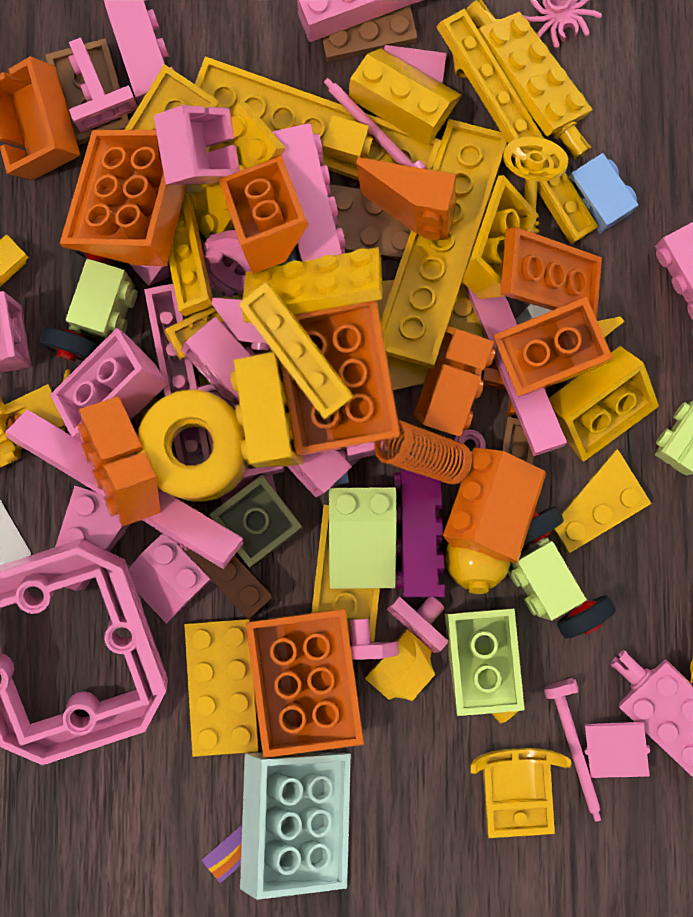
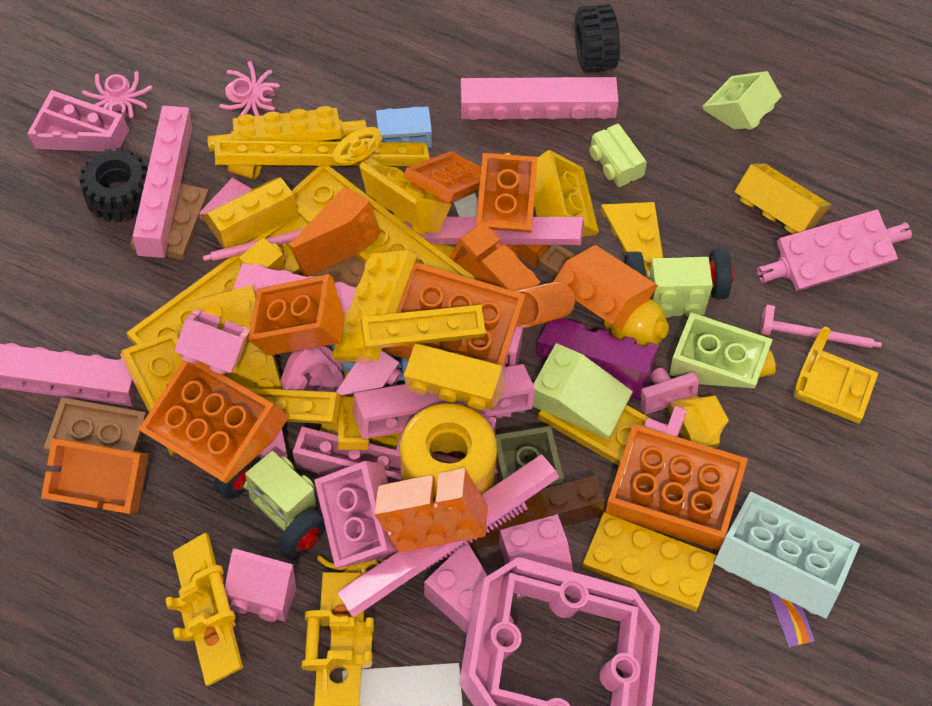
camera: 60 degrees left, 25 degrees down
(99, 106) = (102, 417): bright pink bracket -> none
(617, 750) = (831, 304): bright pink piece -> none

